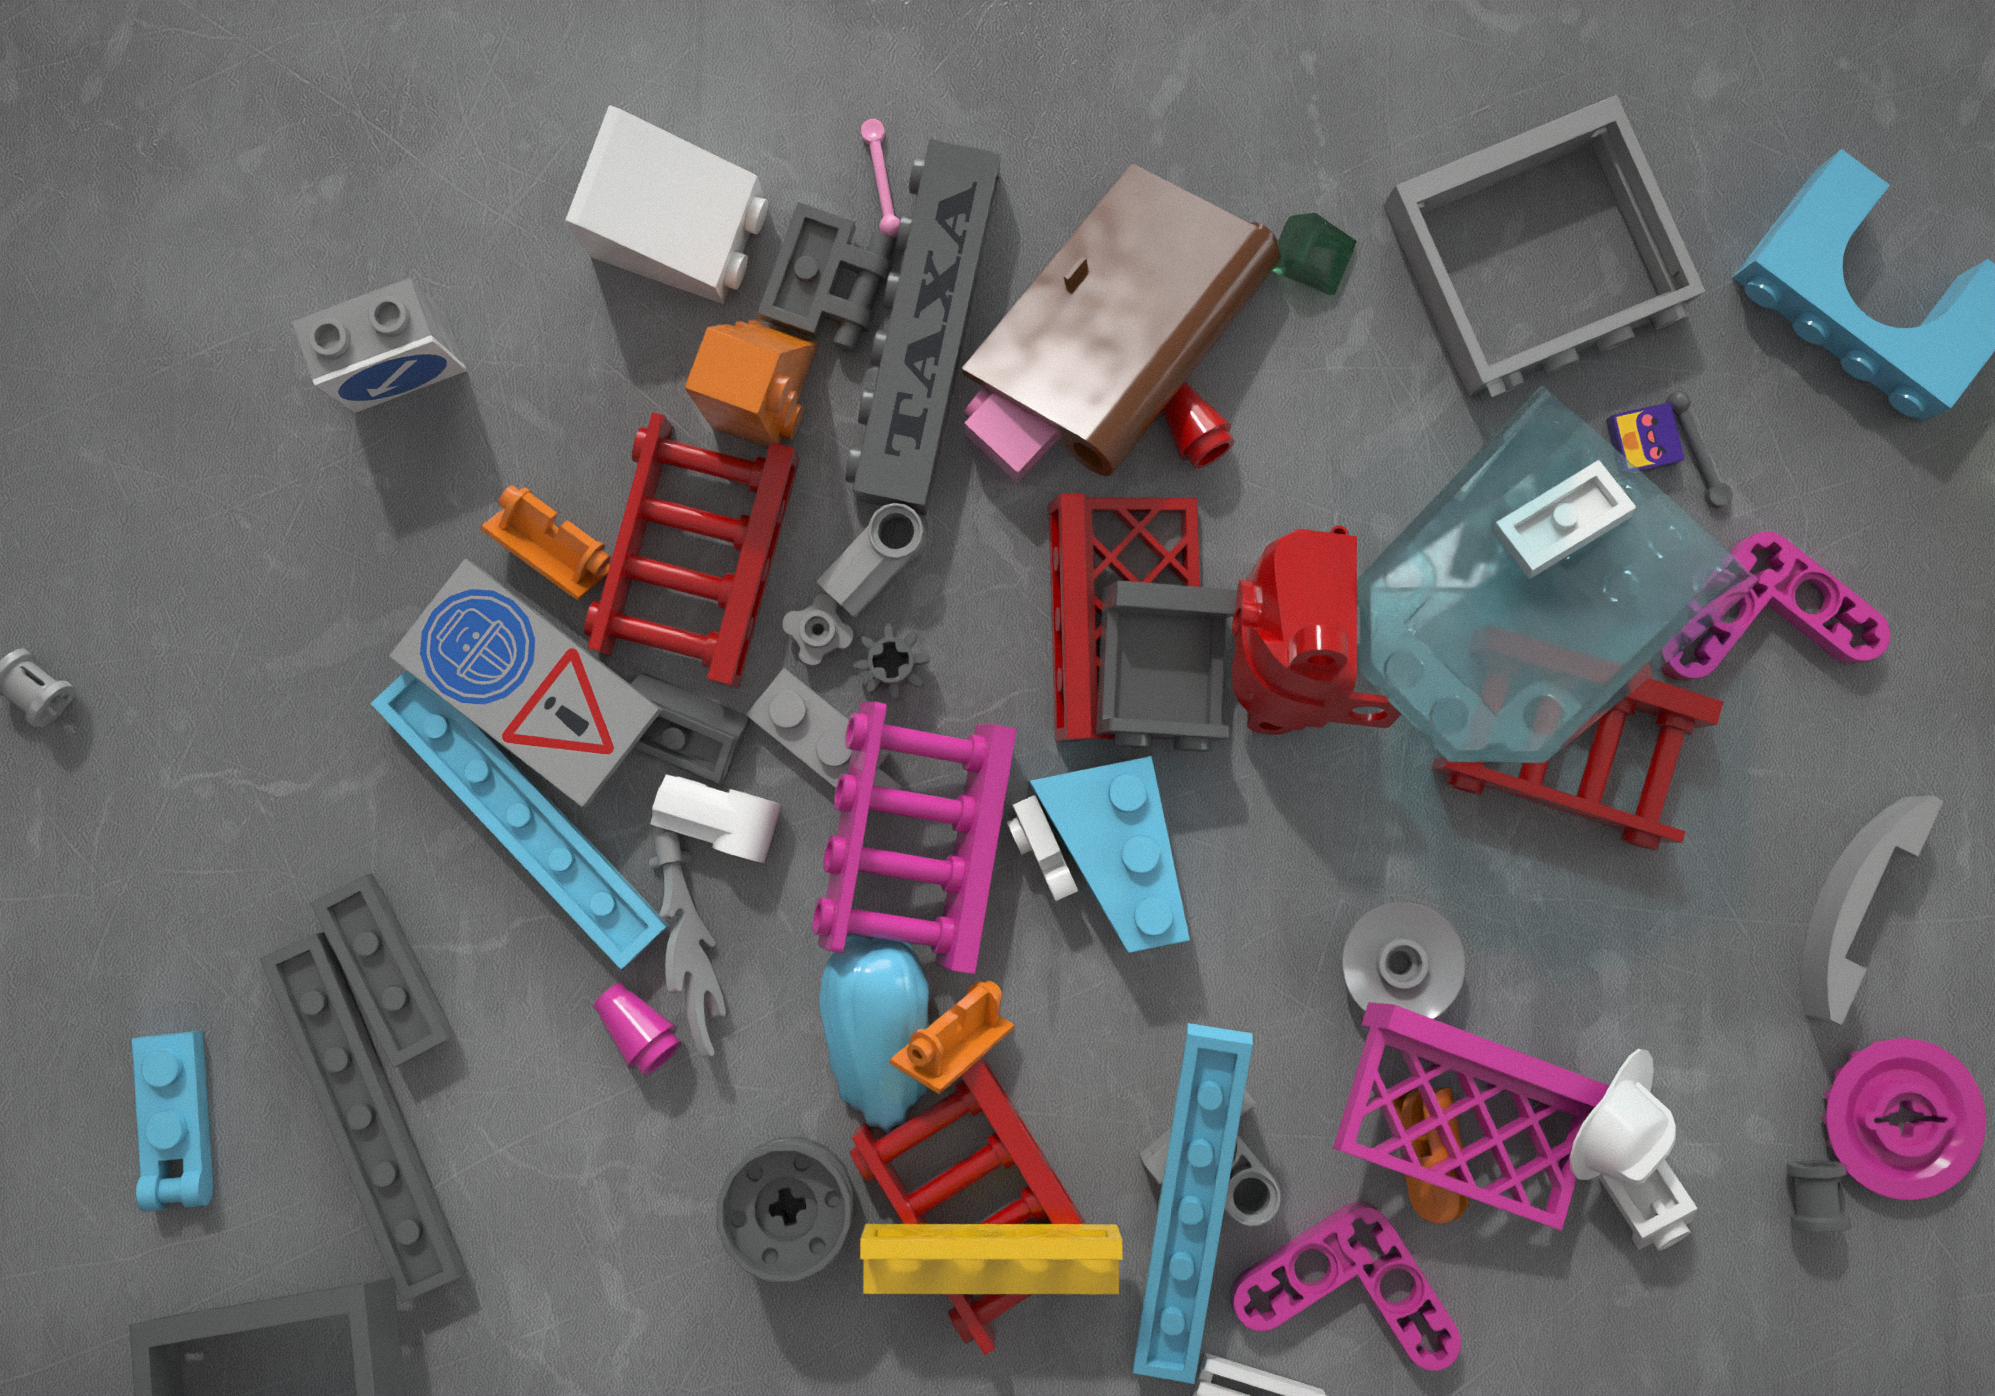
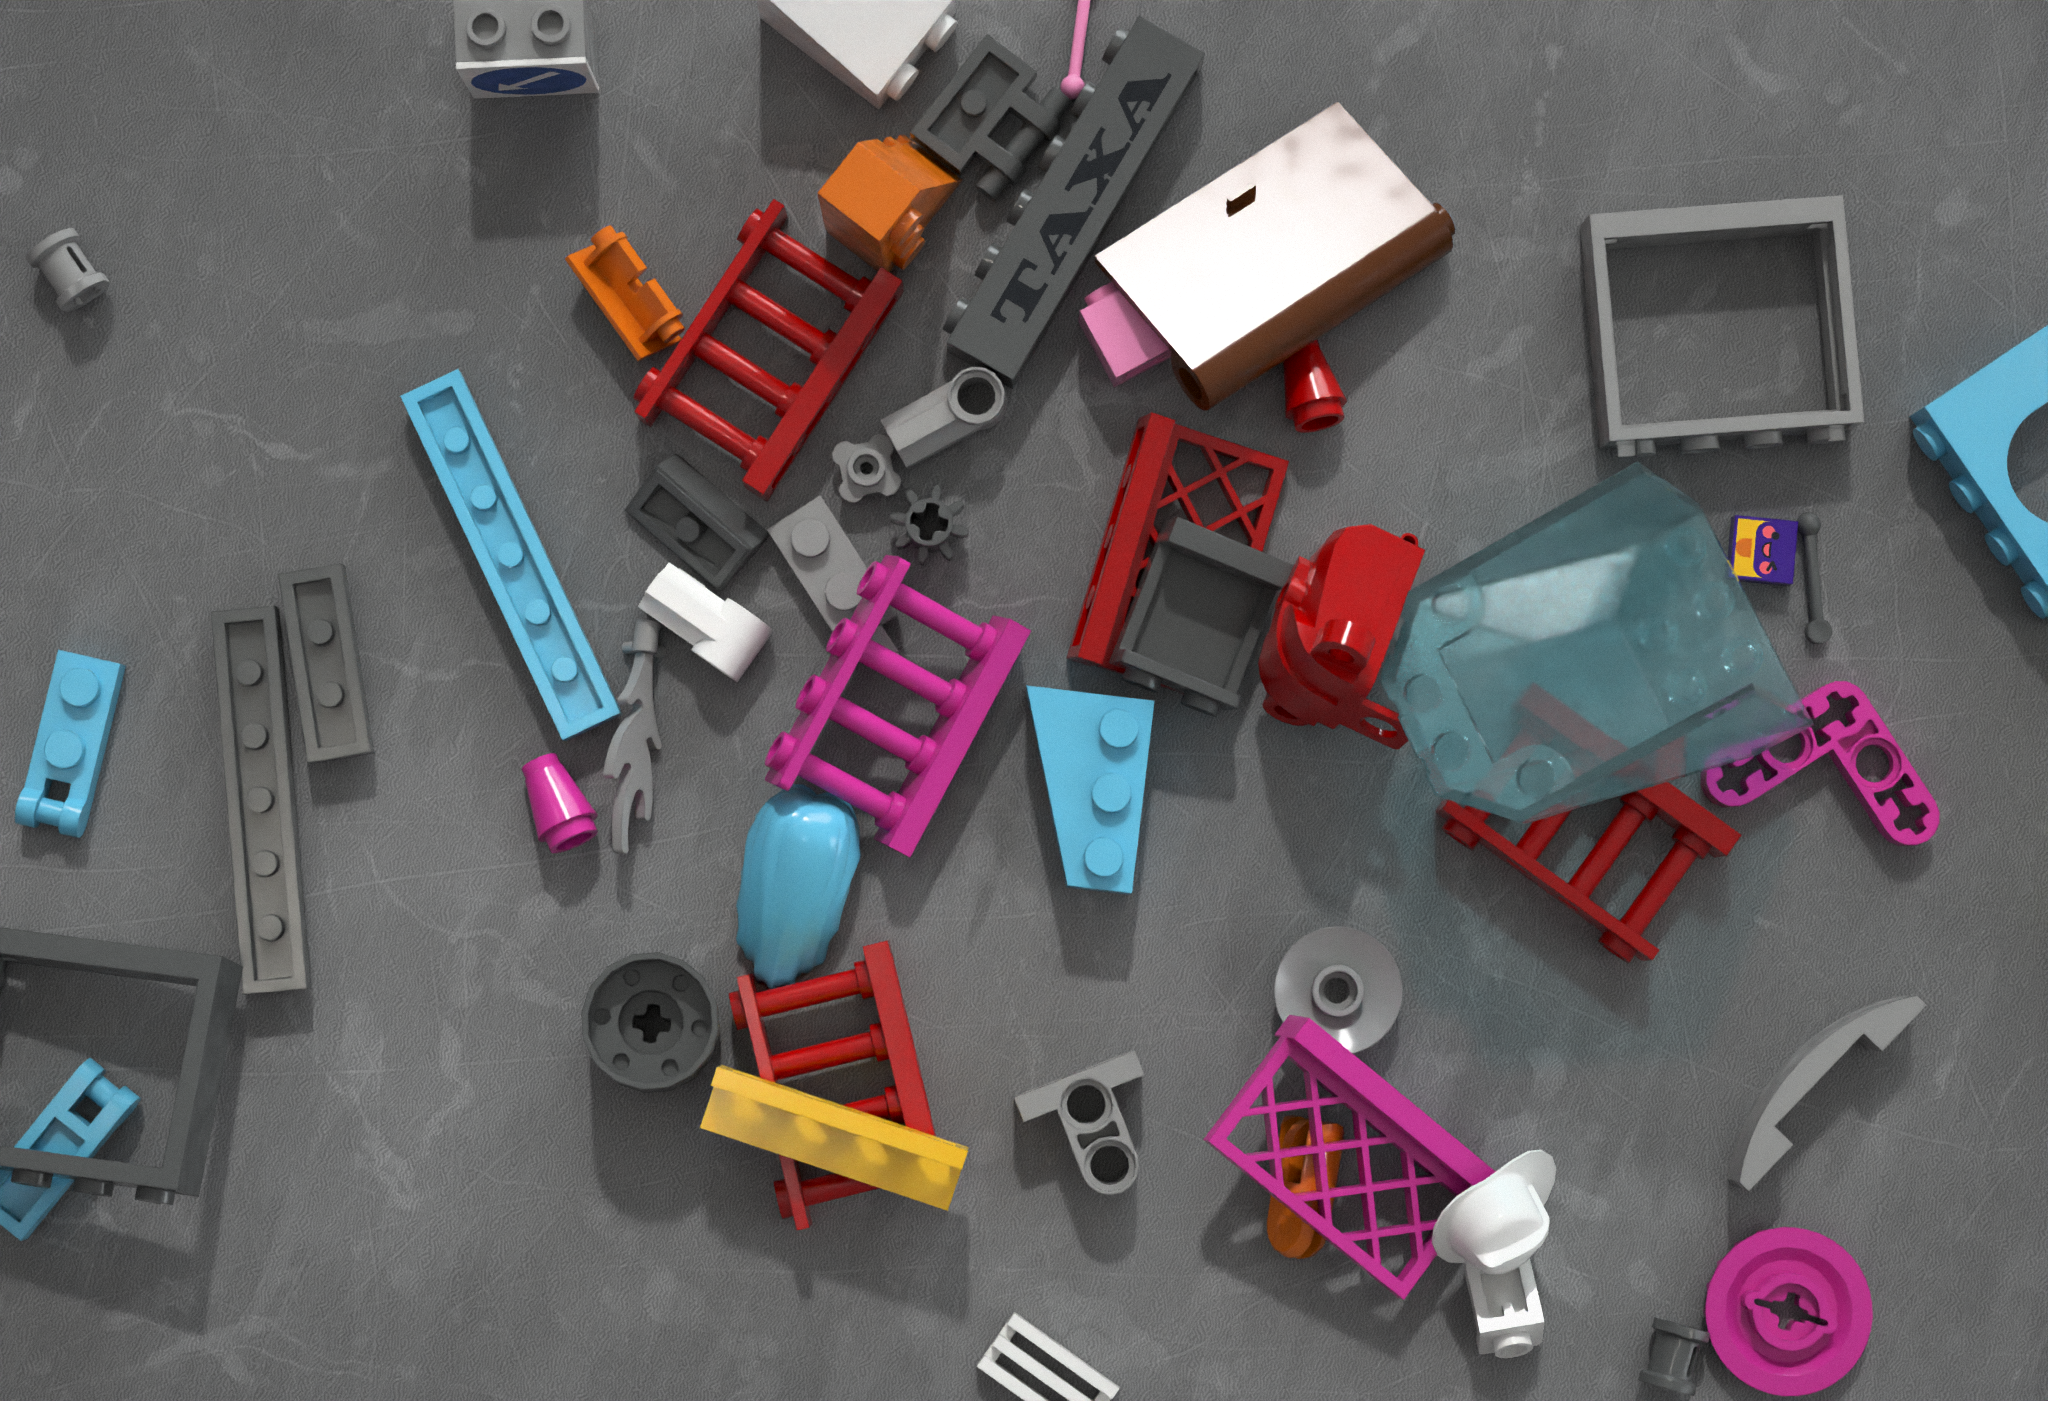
camera: 15 degrees right, 0 degrees up
(525, 683) = (561, 426): light grey tile -> none
(955, 1039) = (869, 913): orange hinge -> none
(1034, 833) = (1014, 740): white plate -> none
(1192, 1201) = (1047, 1148): medium azure plate -> none
(1314, 252) = (1491, 252): clear green slope -> none
(1344, 1263) = (1182, 1266): dark pink beam -> none
(1564, 519) = (1642, 602): white plate -> none

